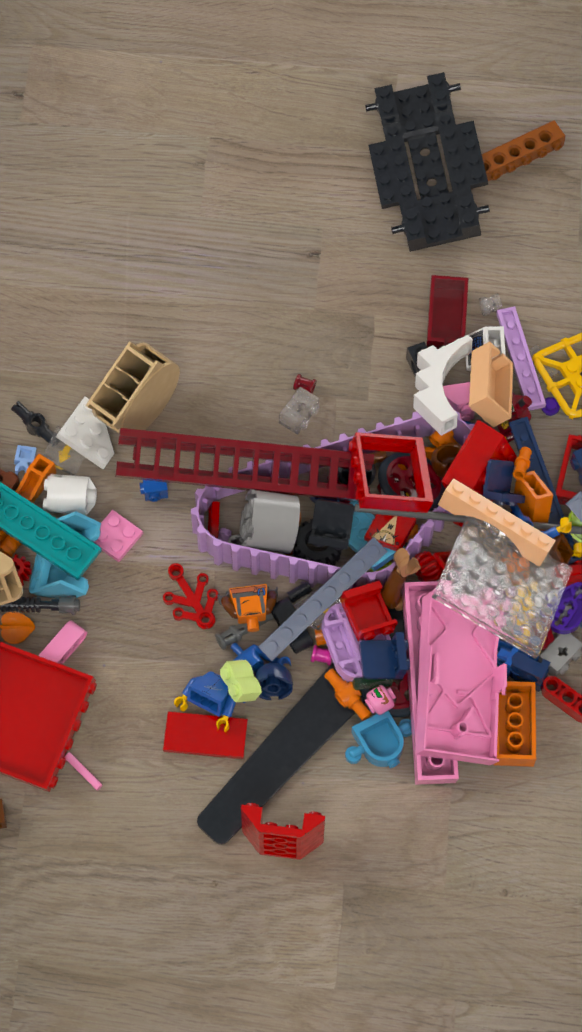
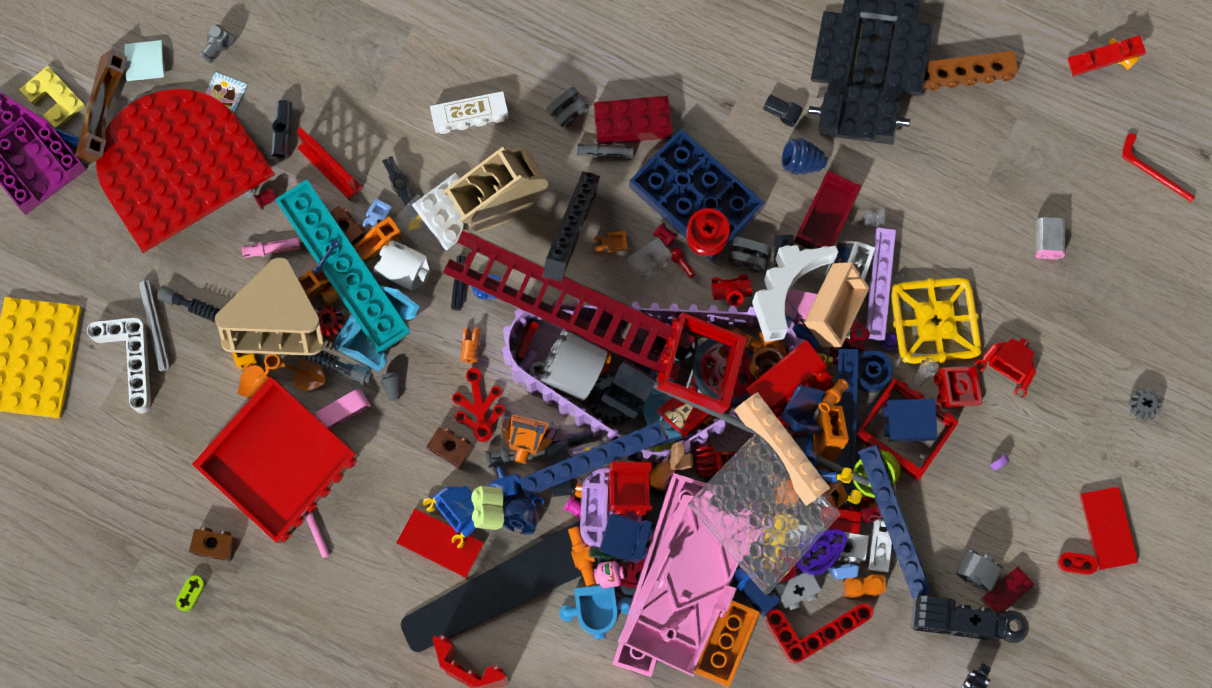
camera: 20 degrees right, 10 degrees up
(76, 339) = (469, 112): none -> white brick
(100, 608) = (391, 385): none -> dark grey cone
(117, 536) = (434, 320): bright pink plate -> none
(128, 499) = (458, 287): none -> black axle
(162, 546) = (470, 347): none -> orange hinge
(176, 302) = (566, 117): none -> dark grey brick
(187, 651) = (455, 457): none -> copper brick
(216, 331) = (604, 150): none -> dark grey pin
(218, 397) = (571, 226): none -> black brick
(232, 295) = (632, 120): none -> dark red piece
(258, 406) = (614, 242): none -> orange plate
(319, 339) = (689, 179): none -> dark blue brick
(324, 401) = (678, 257): none -> red bar
(345, 362) = (697, 232): none -> red wheel
(372, 240) = (787, 112): none -> black piece
(389, 374) = (754, 263): none -> dark grey brick
(390, 407) = (731, 289): none -> red connector
(403, 273) = (802, 157): none -> dark blue piece
(549, 434) = (883, 371): none -> dark blue brick

